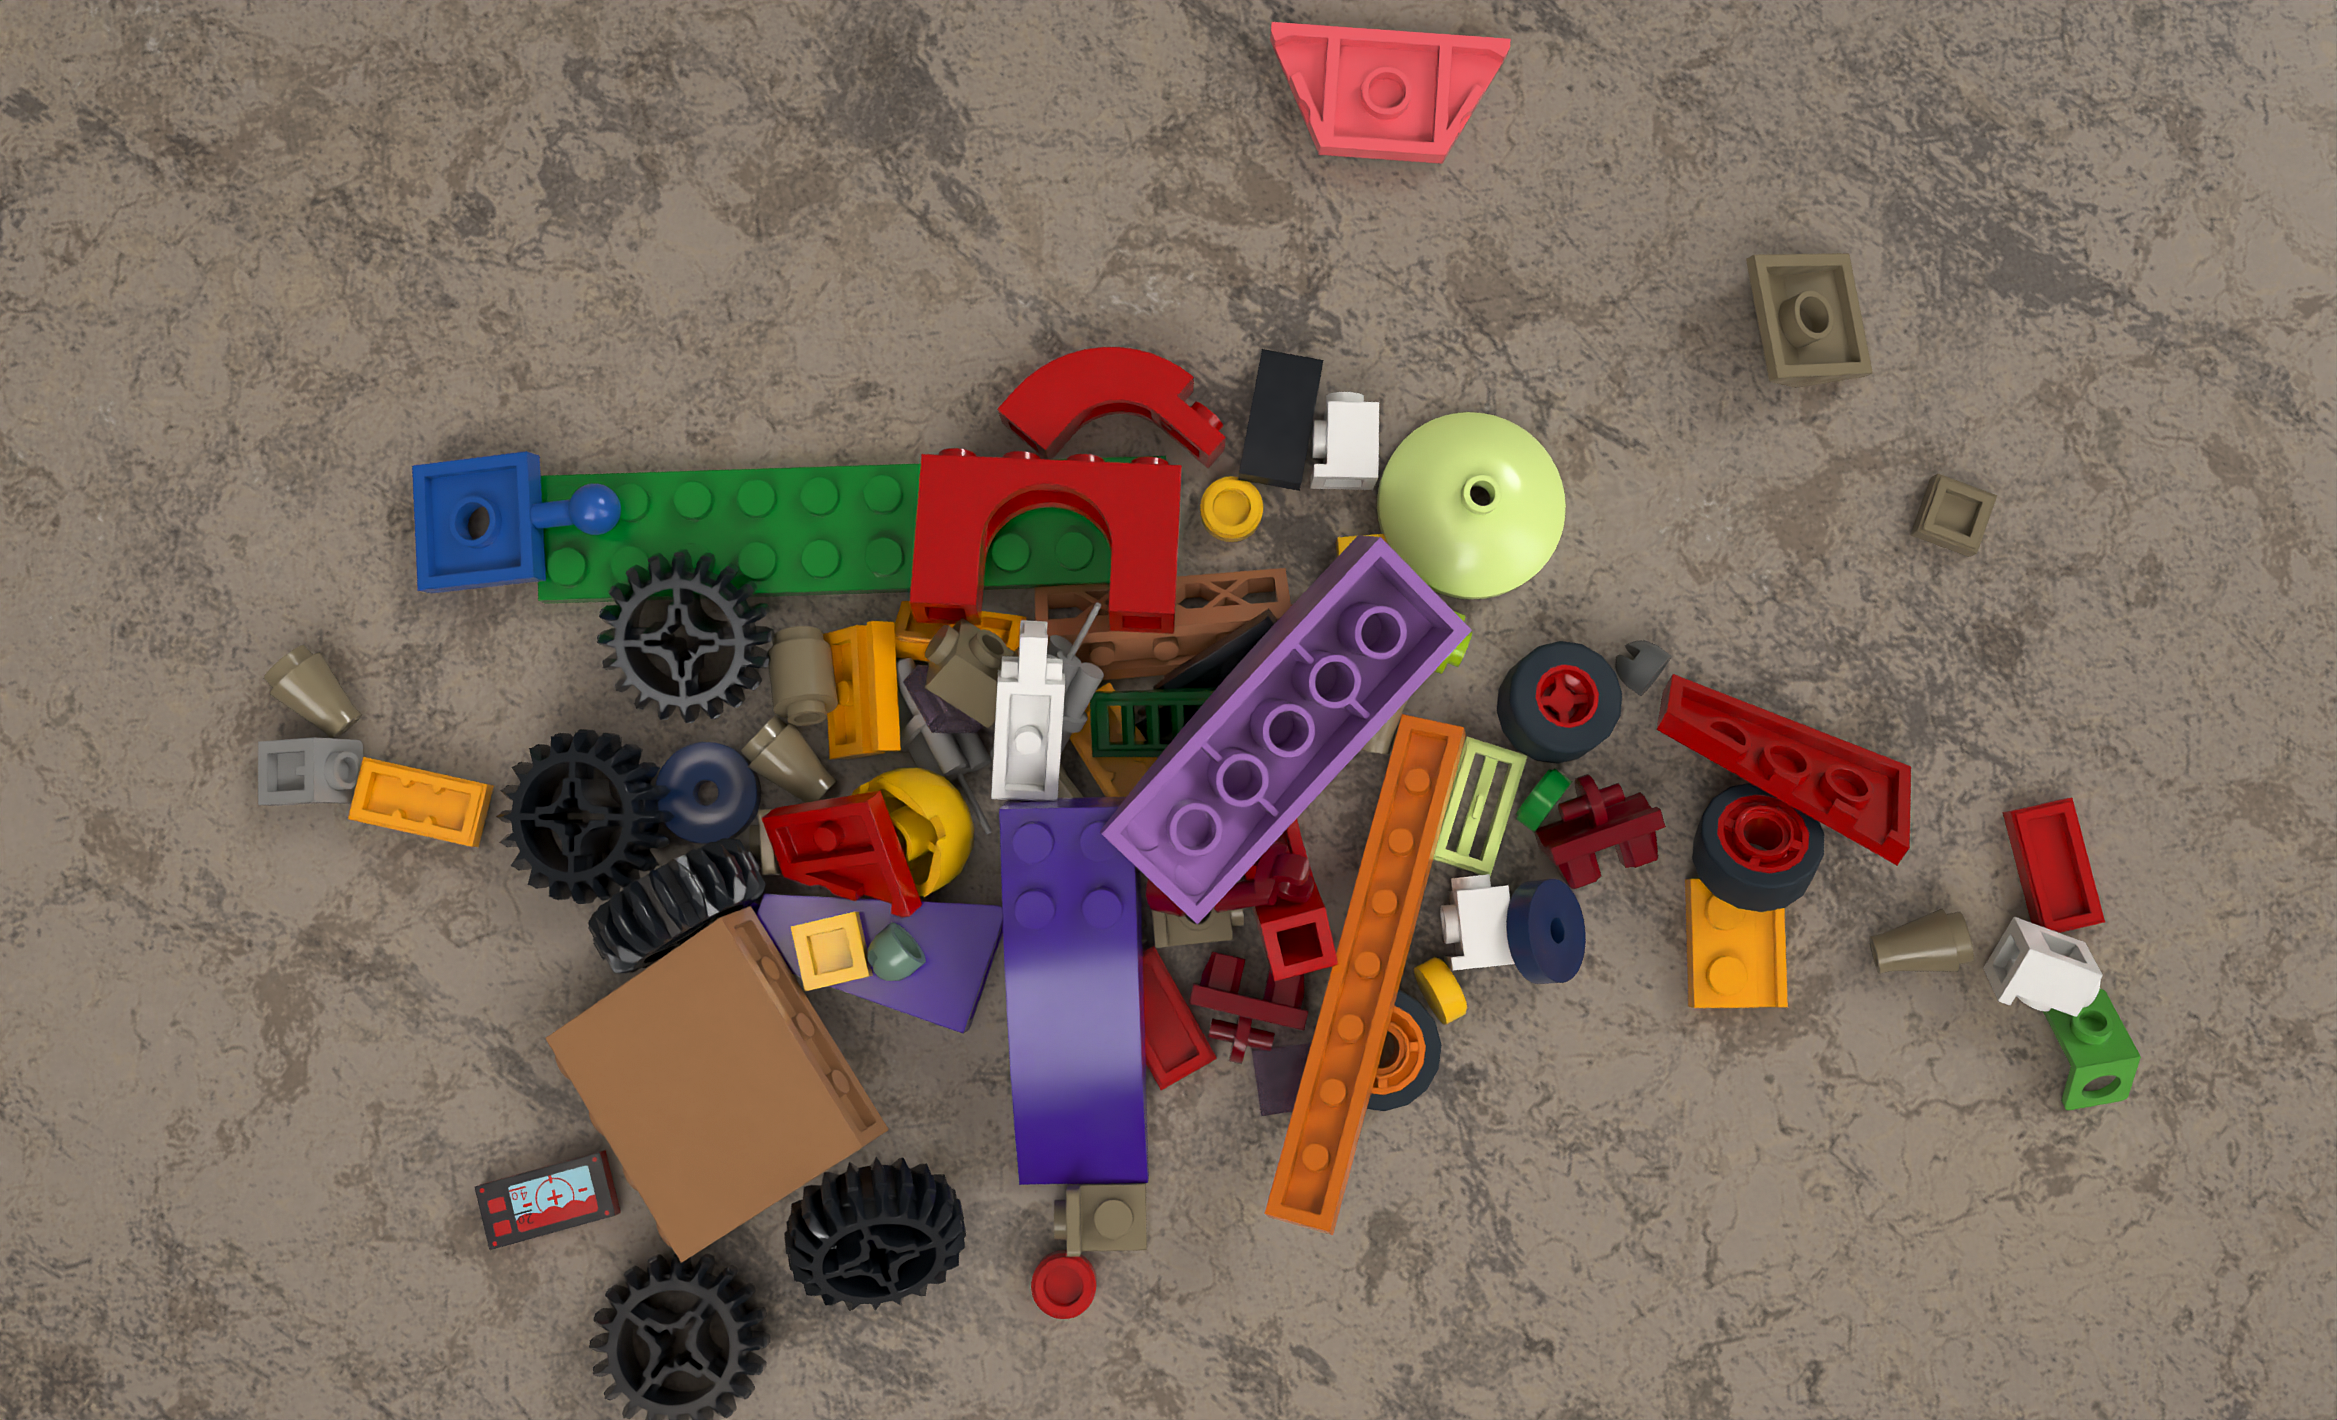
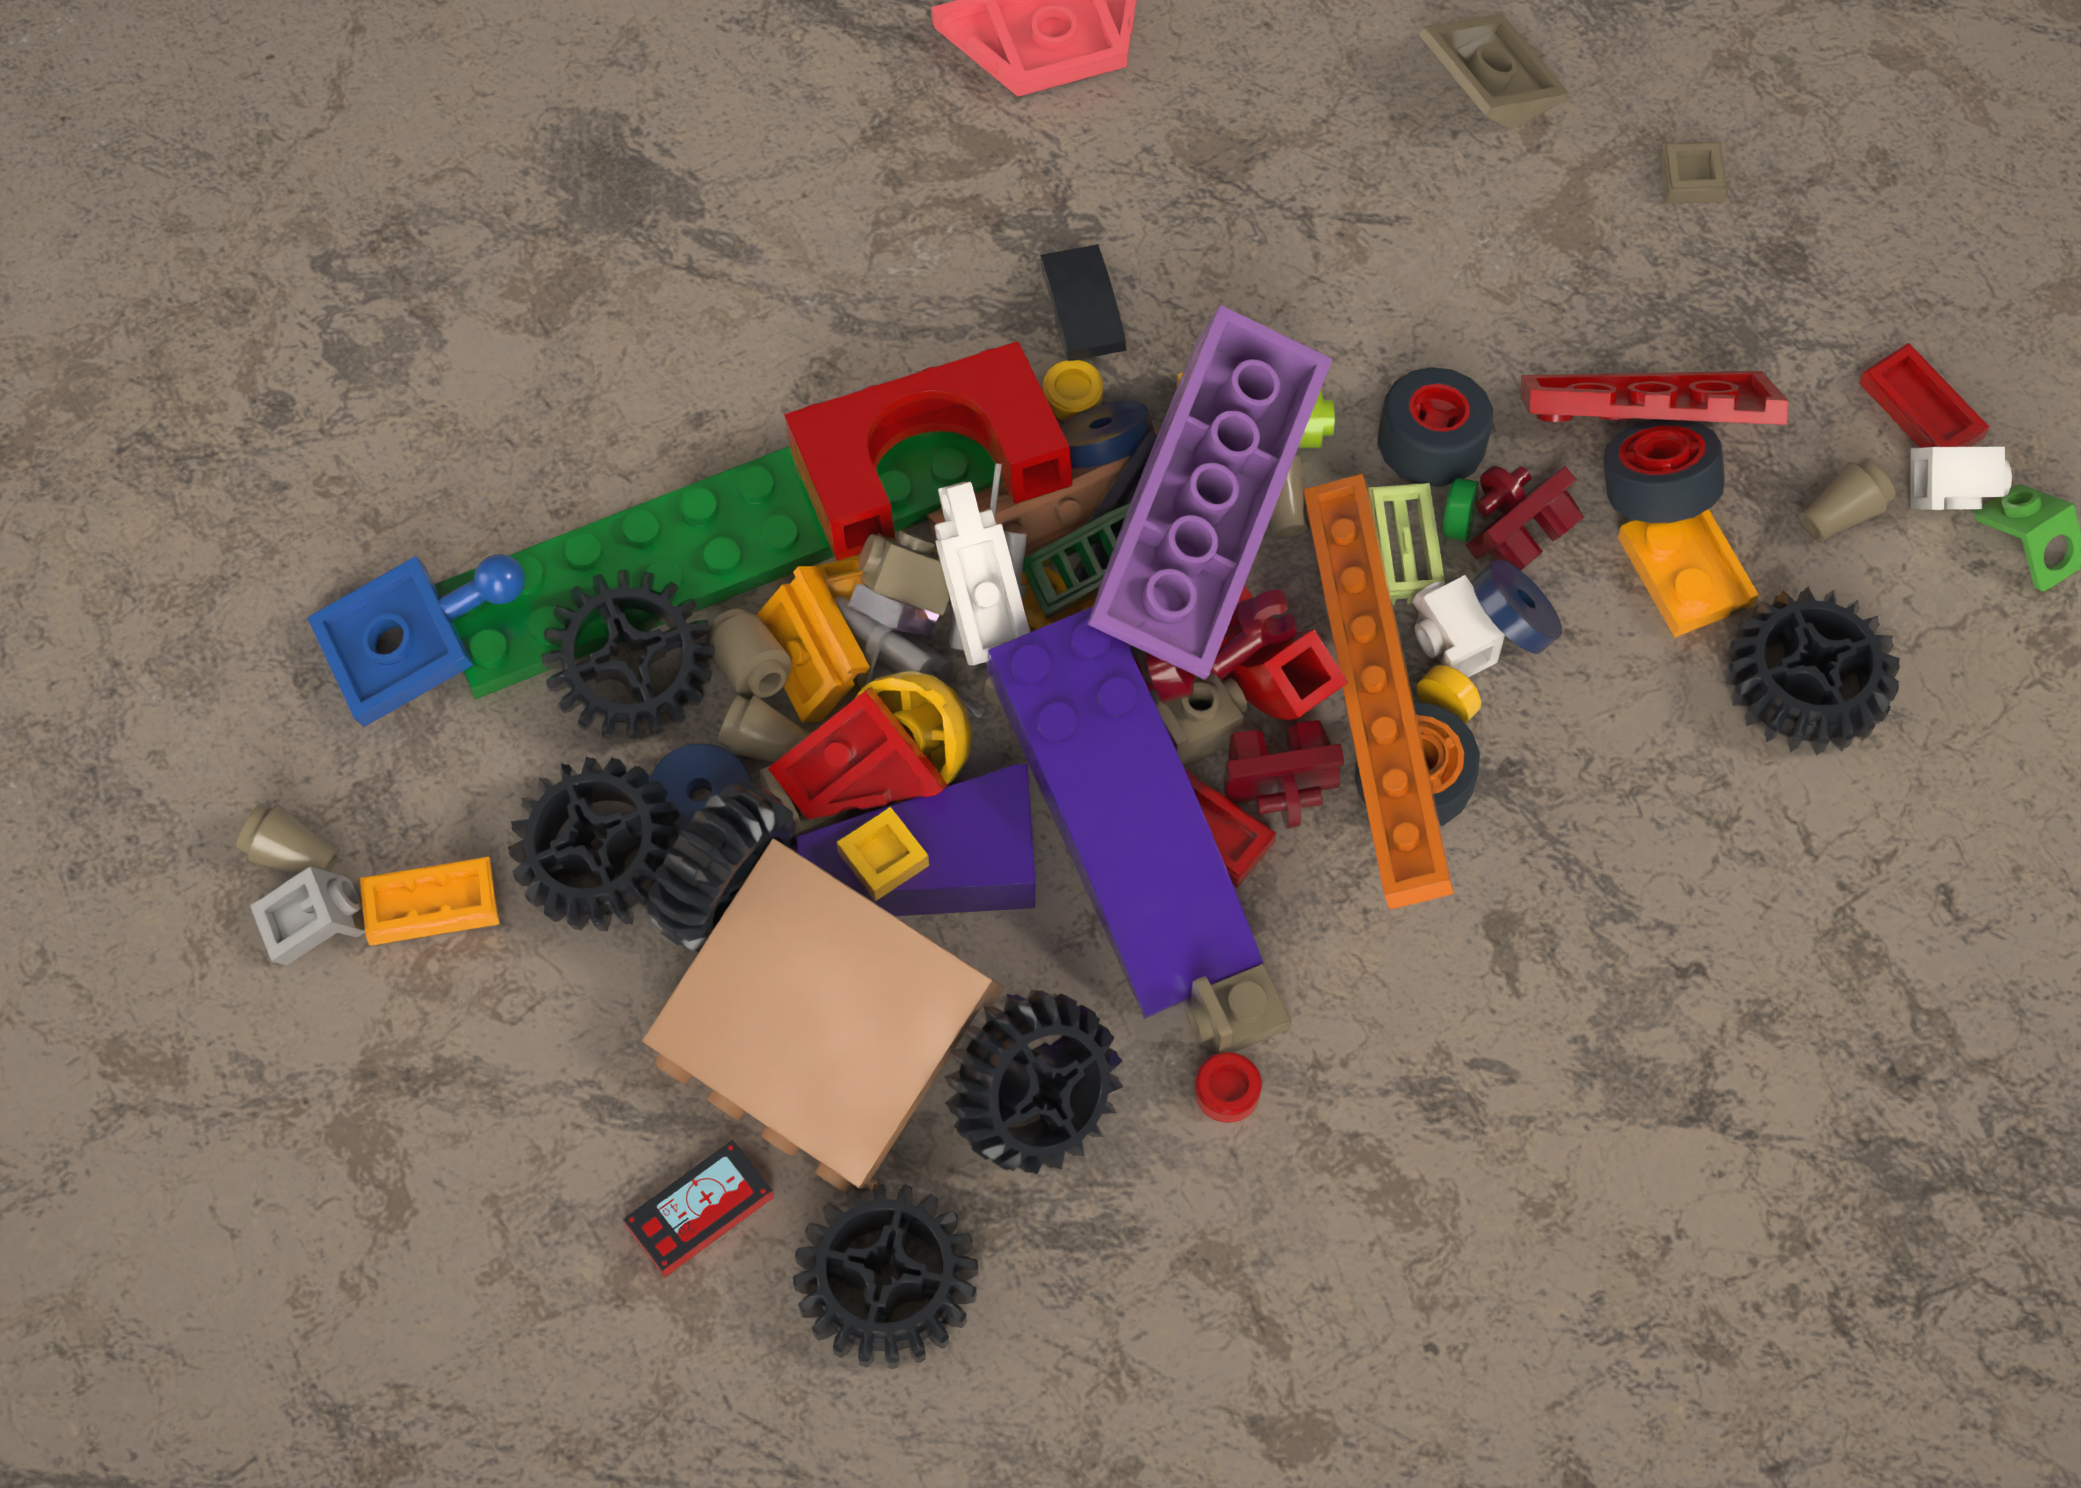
camera: 25 degrees left, 20 degrees down
(894, 954) = (942, 830): sand green hinge -> none
(1109, 382) = (929, 323): red arch -> none
(1233, 581) = (1106, 432): none -> dark blue piece
(1279, 1076) = (1342, 829): tile -> none
(1346, 443) = (1151, 298): white brick -> none
(1447, 536) = (1322, 310): yellowish green dish -> none
(1645, 668) = (1494, 375): dark grey hinge -> none
(1799, 1140) = (1803, 692): none -> black gear

